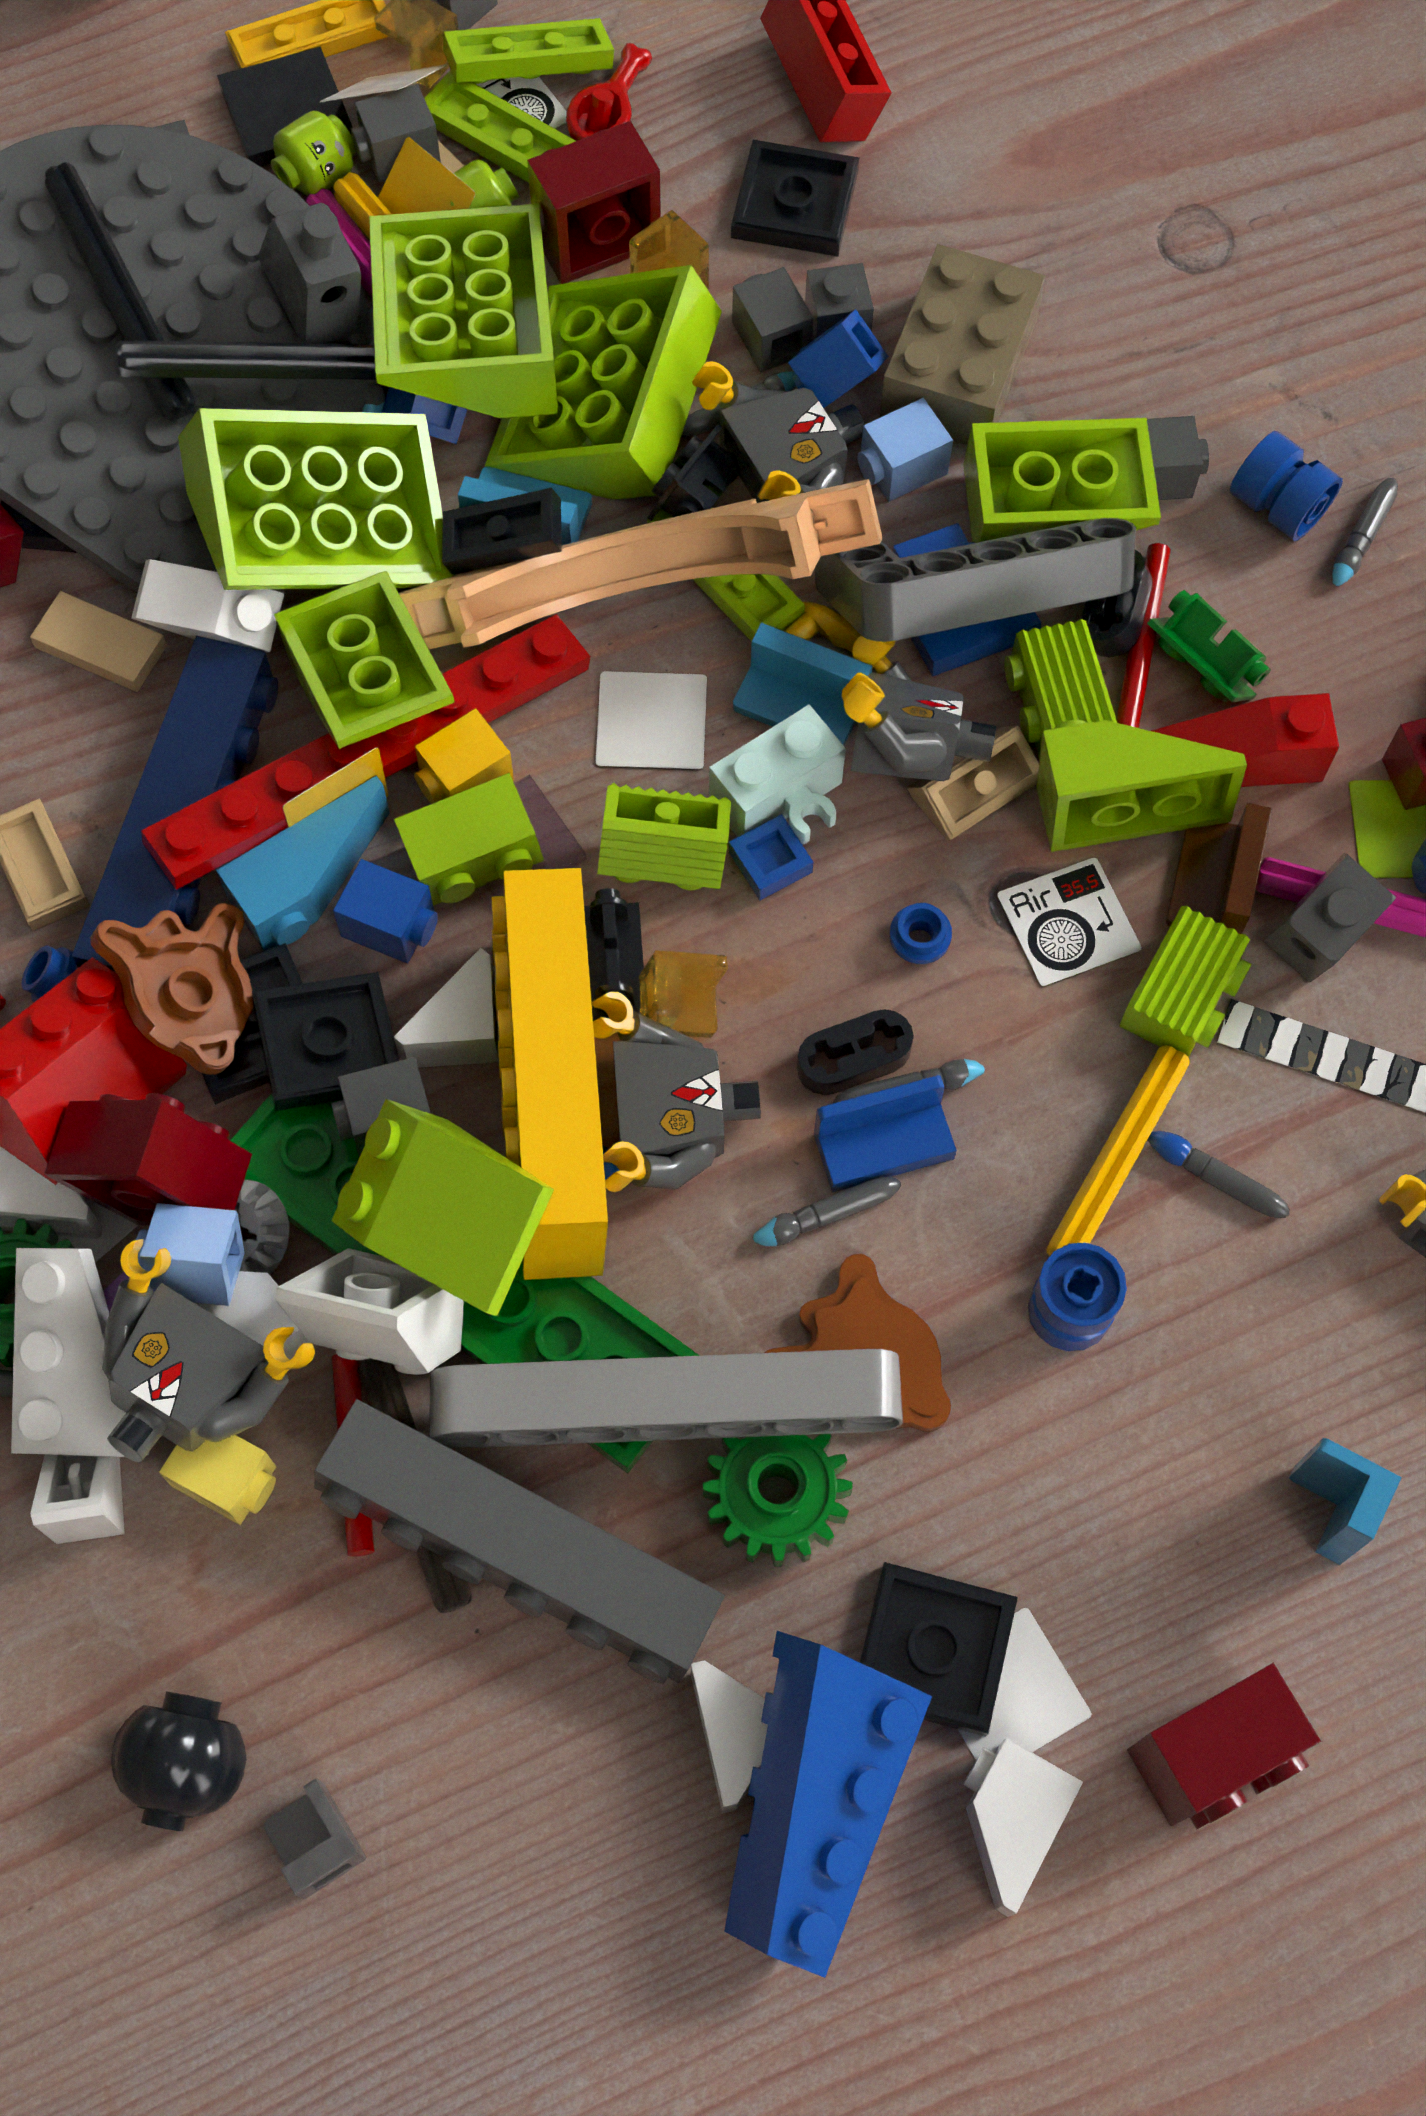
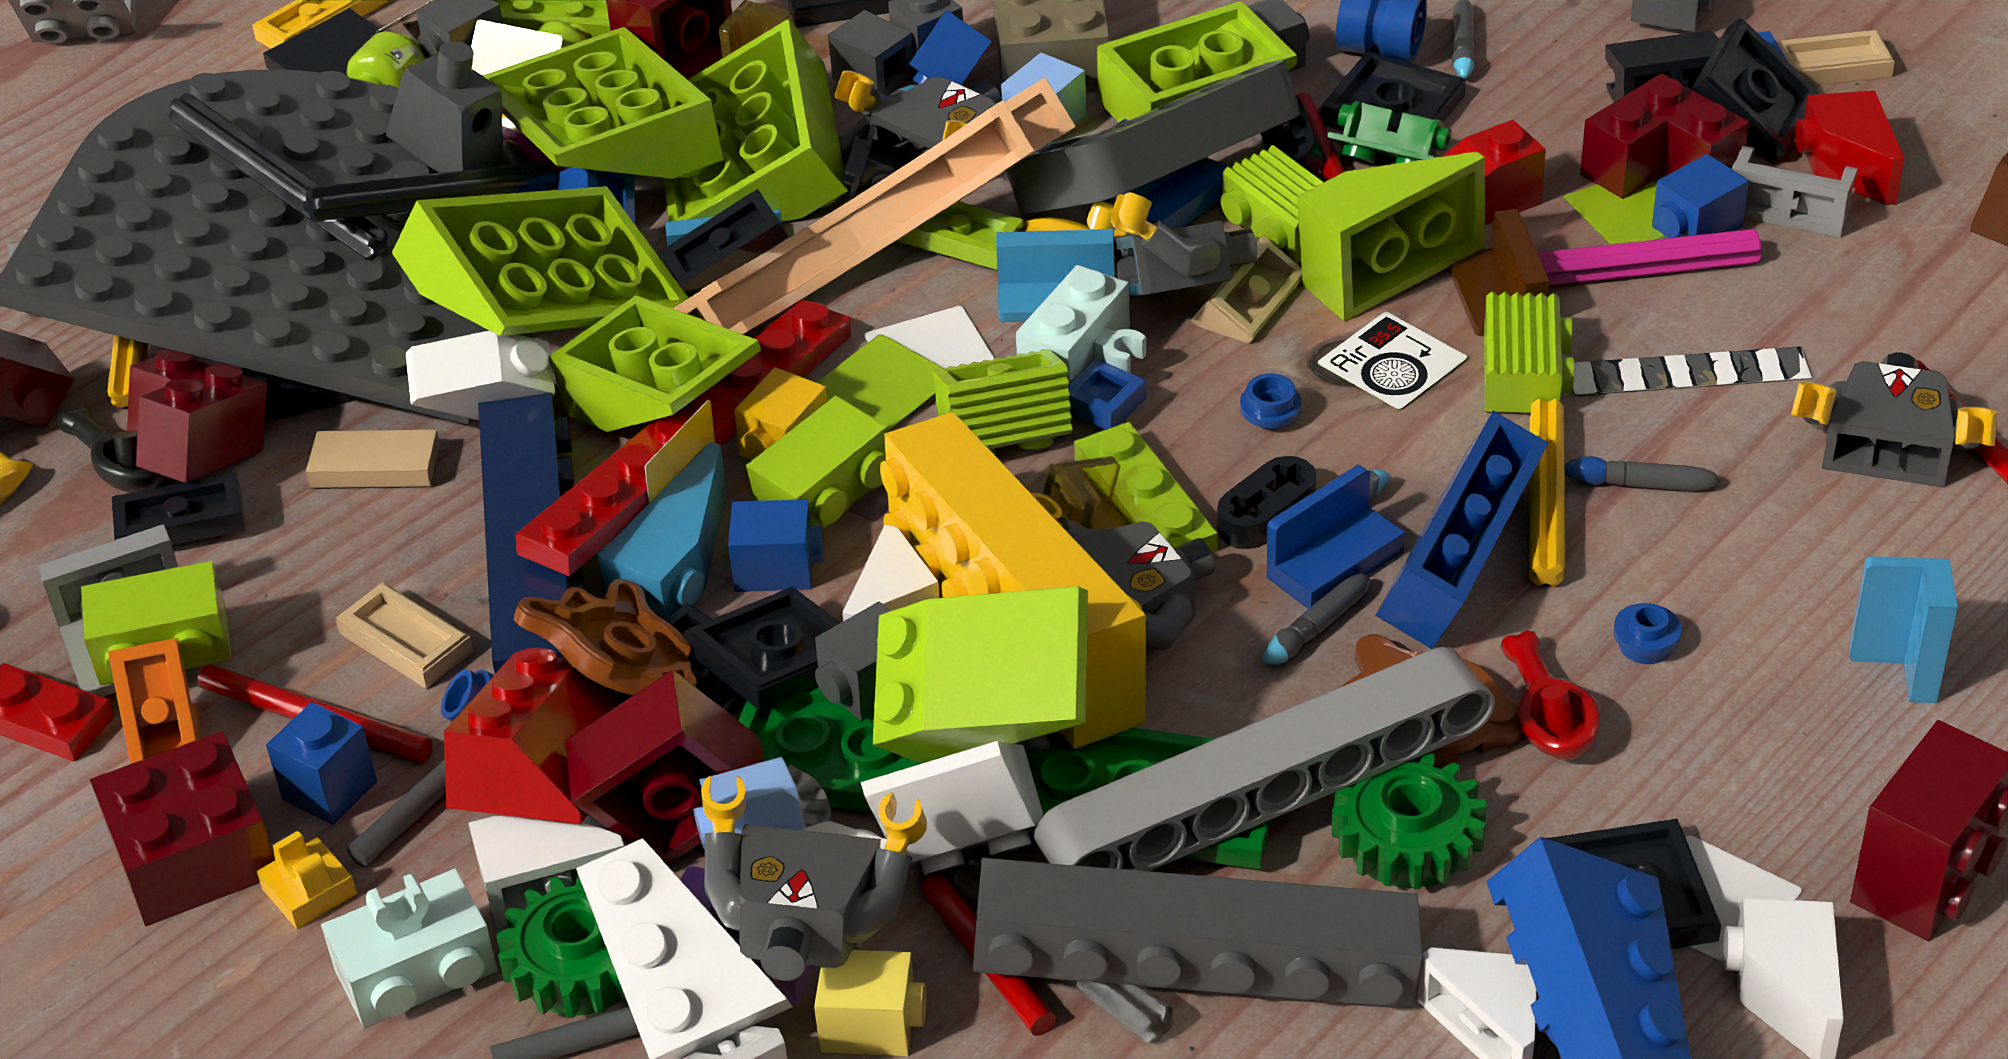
camera: 20 degrees left, 25 degrees down
(585, 744) = (883, 380): none -> lime sticker
(751, 992) = (1146, 487): none -> lime plate
(976, 1424) = (1552, 712): none -> red piece
(1002, 1184) = (1462, 530): none -> blue brick
(1077, 1296) = (1581, 582): blue wheel -> none
(1109, 1385) = (1647, 632): none -> blue plate
(1252, 582) = (1397, 87): none -> black tile
(1330, 918) = (1621, 244): dark grey torso -> none

